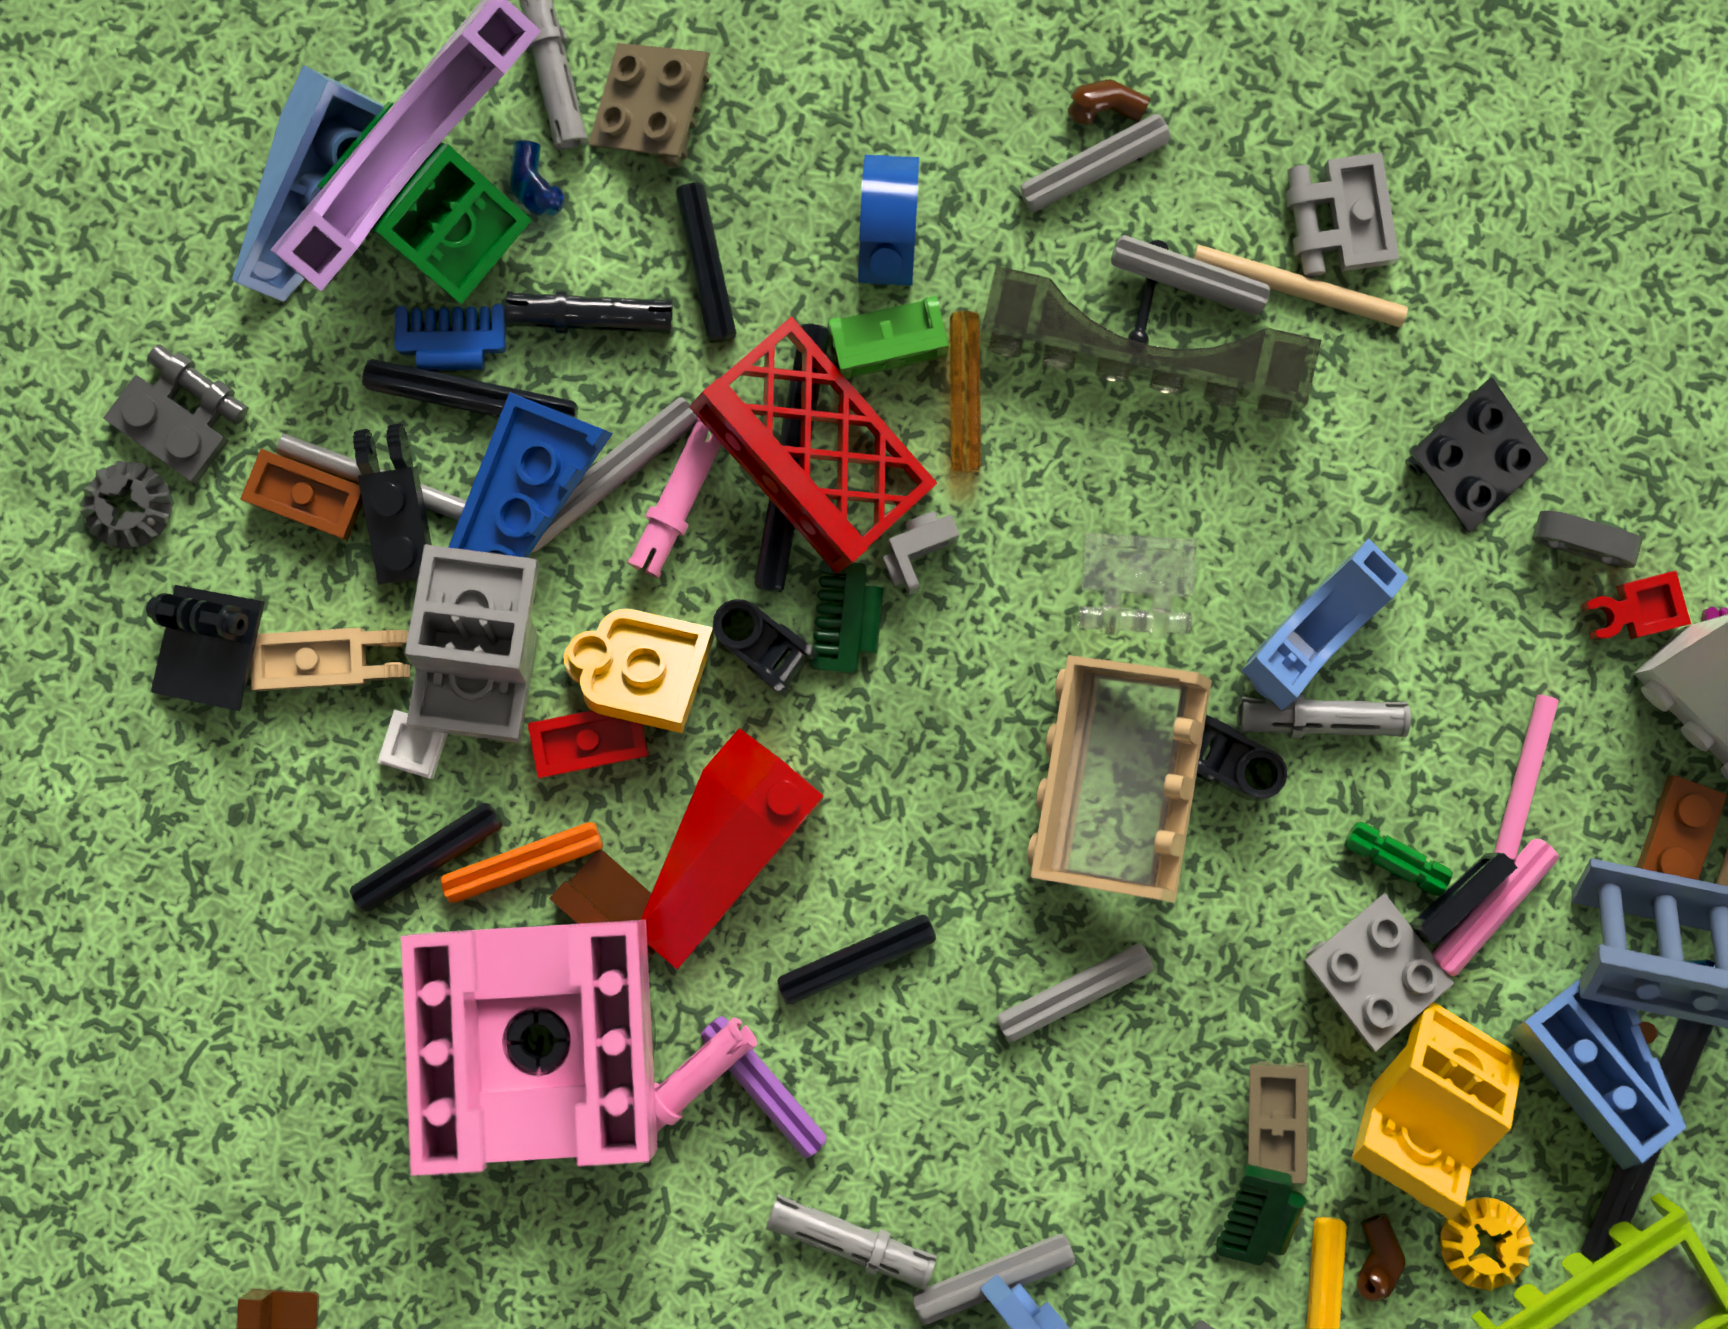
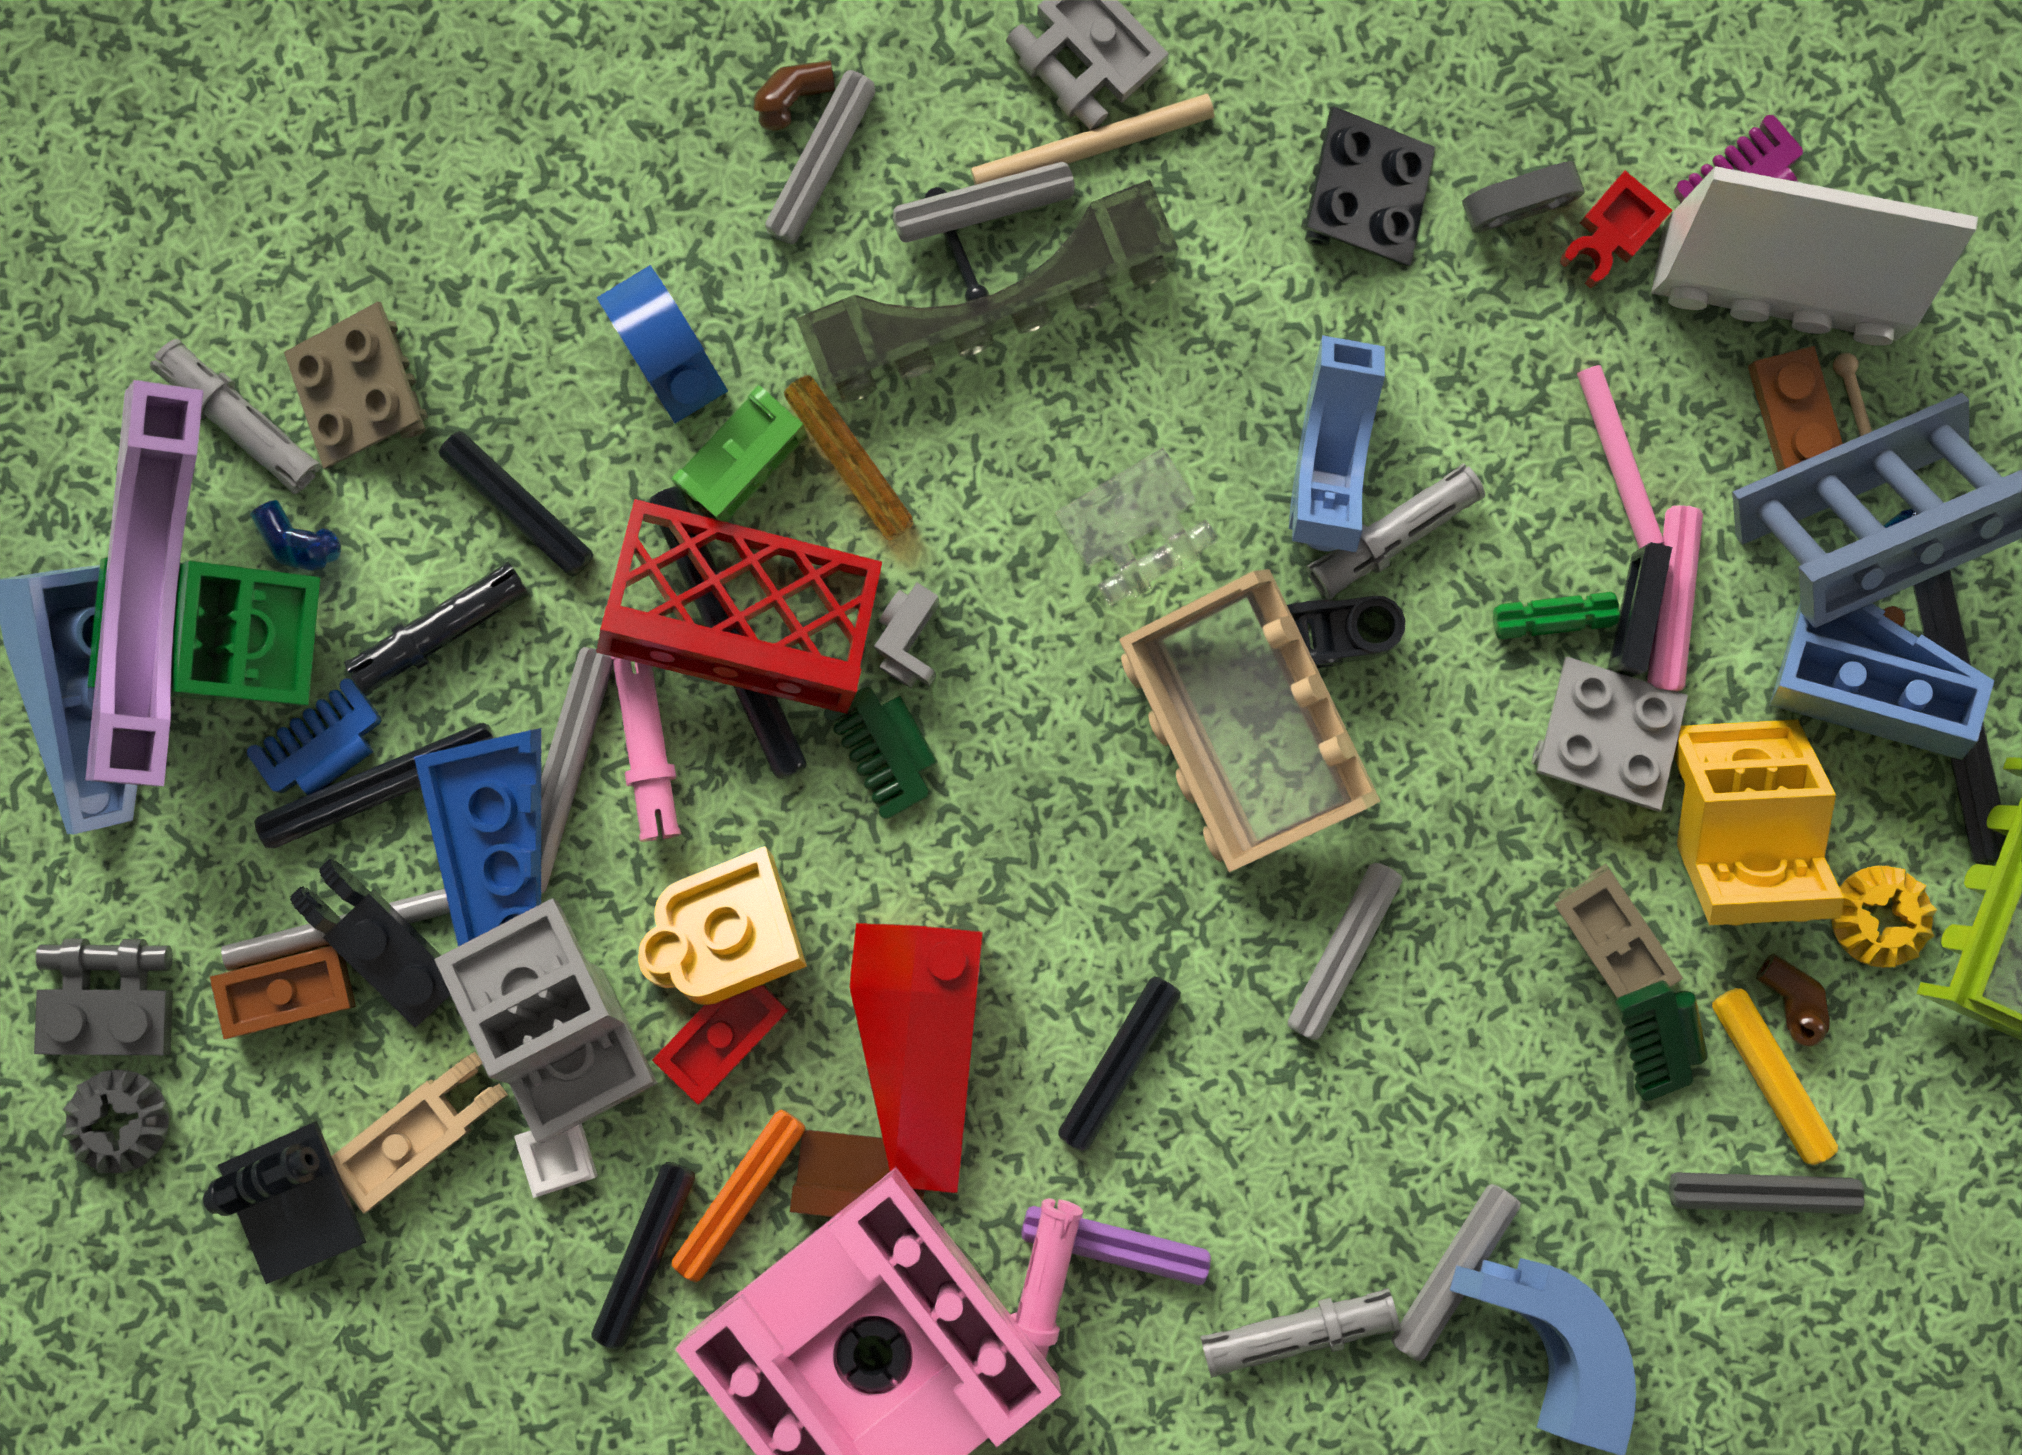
camera: 40 degrees left, 0 degrees up
(765, 646) = (827, 828): black piece -> none

